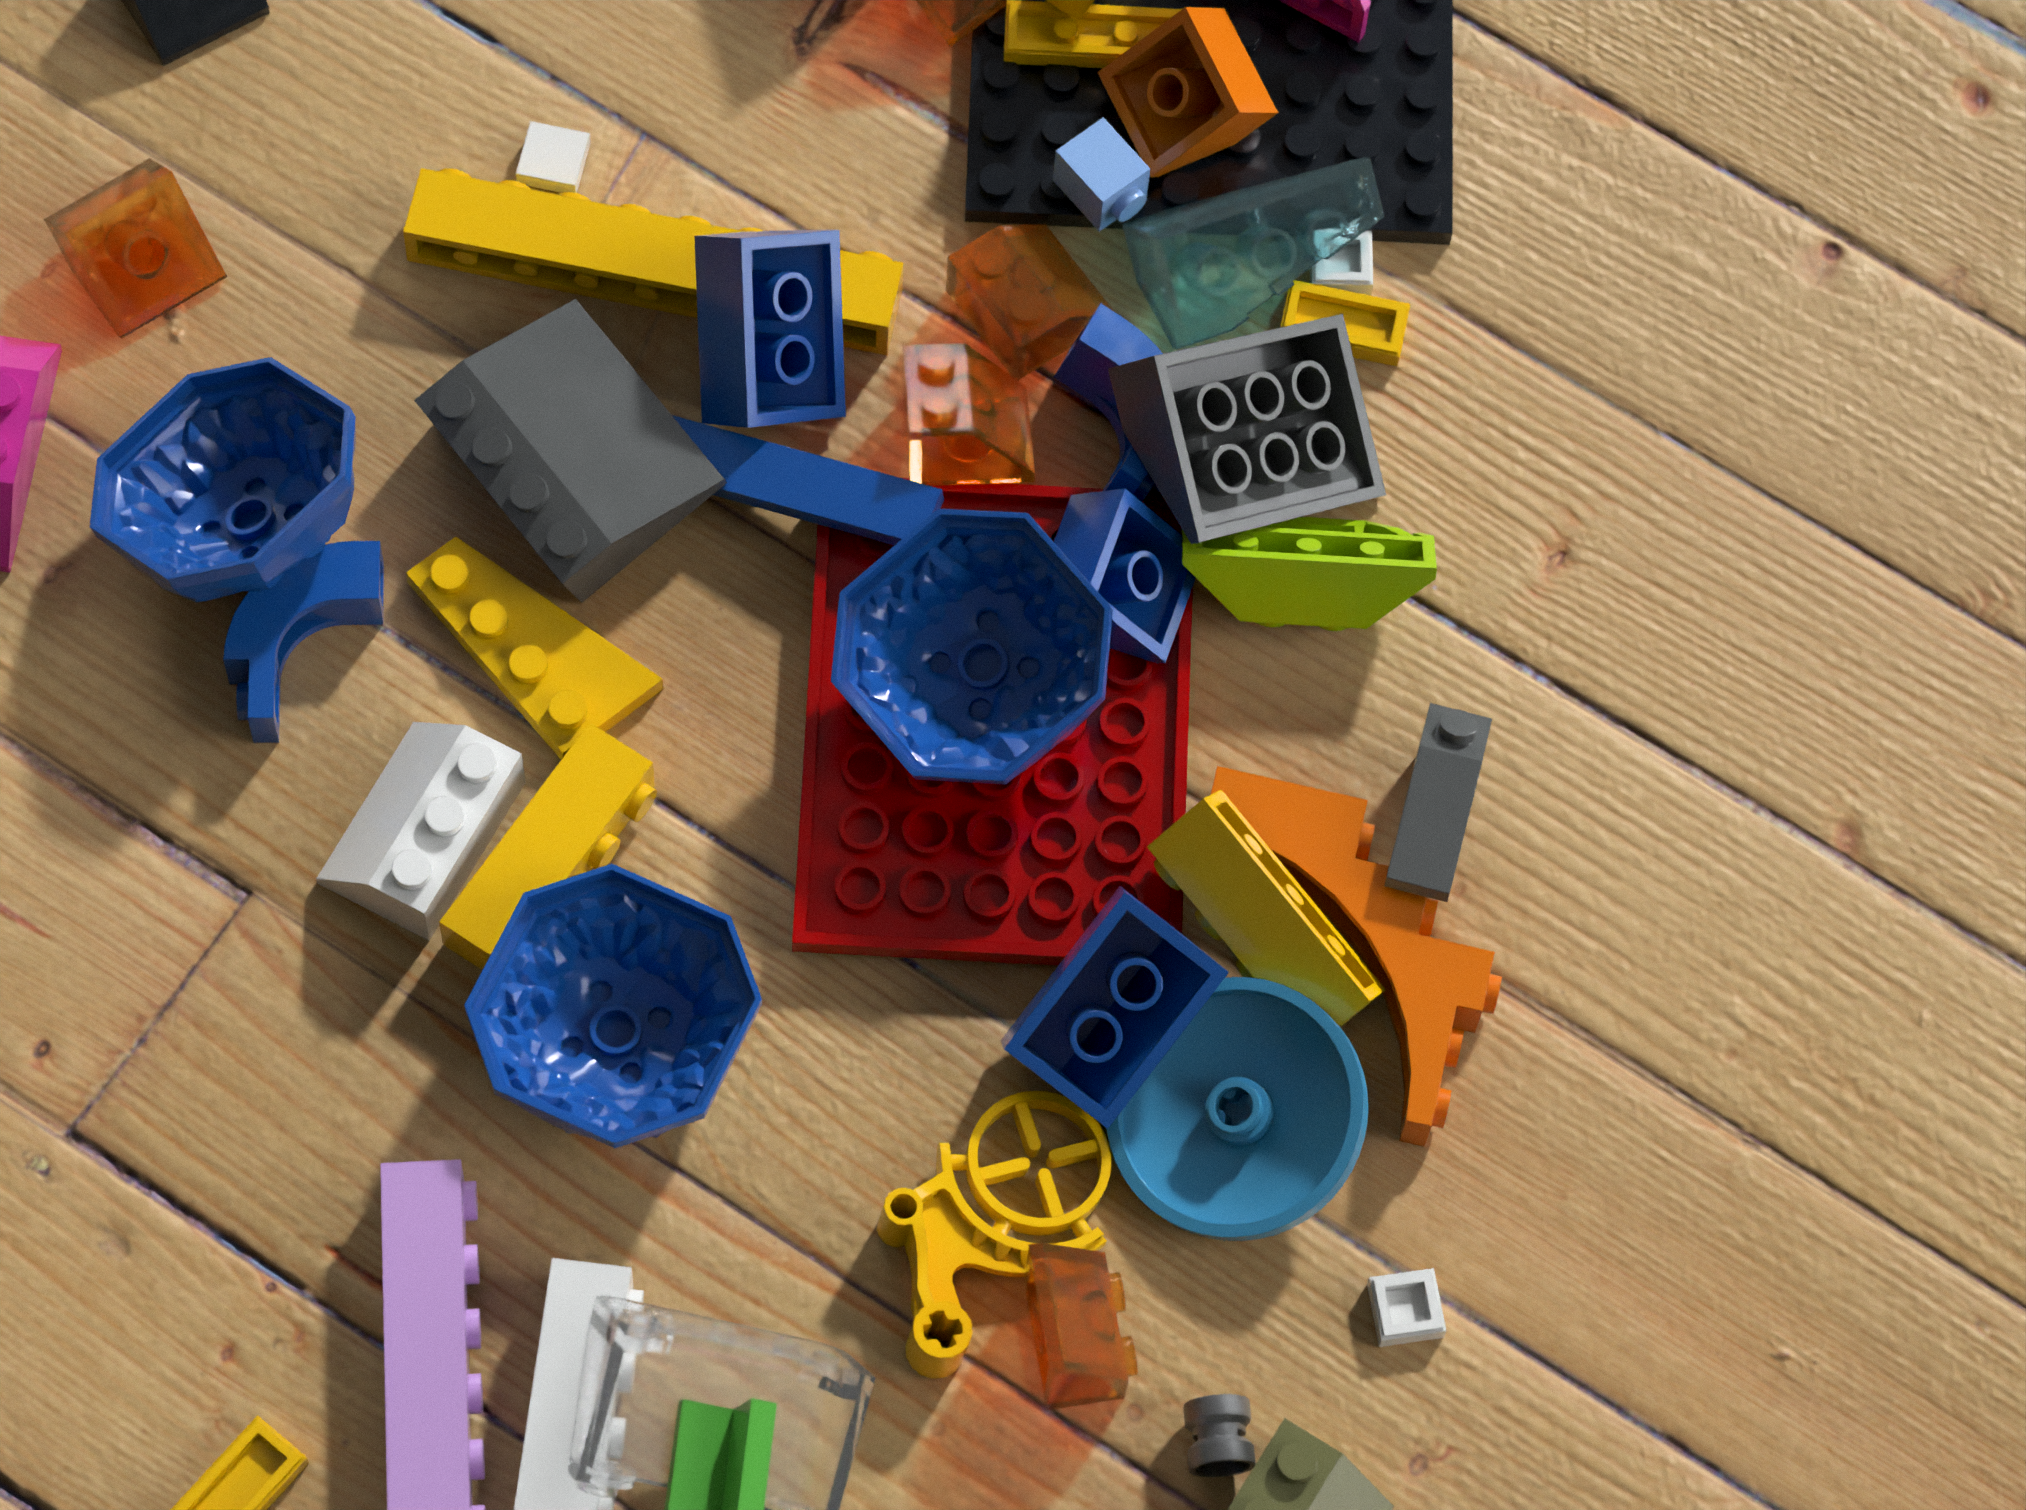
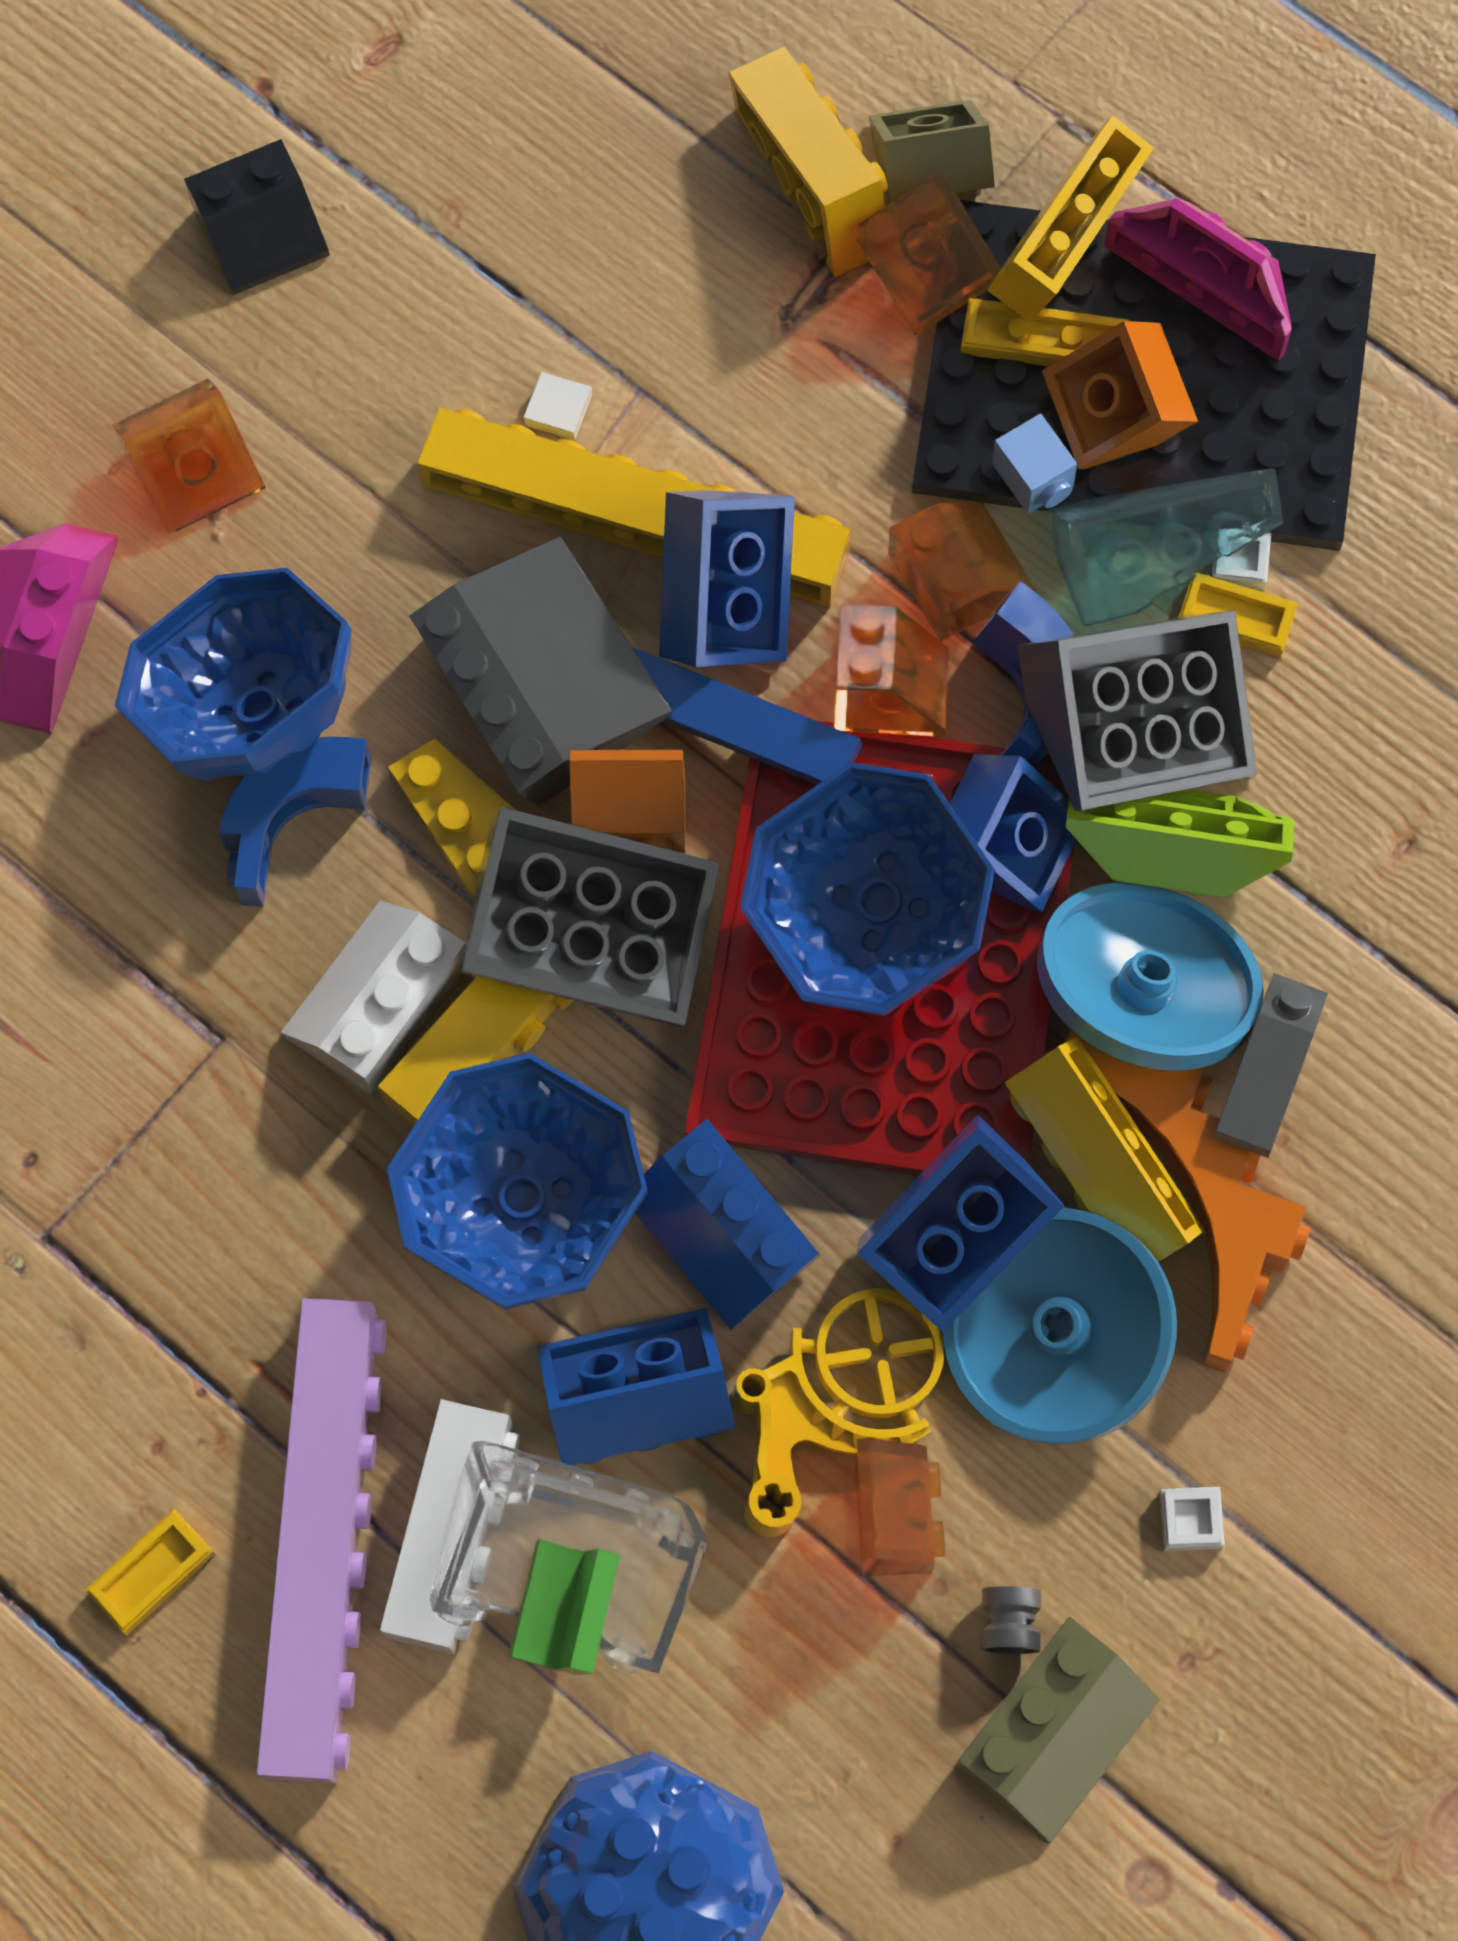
camera: 15 degrees right, 5 degrees up
(659, 709) = (589, 916): none -> dark grey slope
(687, 583) = (631, 795): none -> orange slope
(769, 1227) = (635, 1387): none -> blue slope
(848, 1037) = (722, 1225): none -> blue slope
(1293, 719) = (1150, 976): none -> dark azure dish

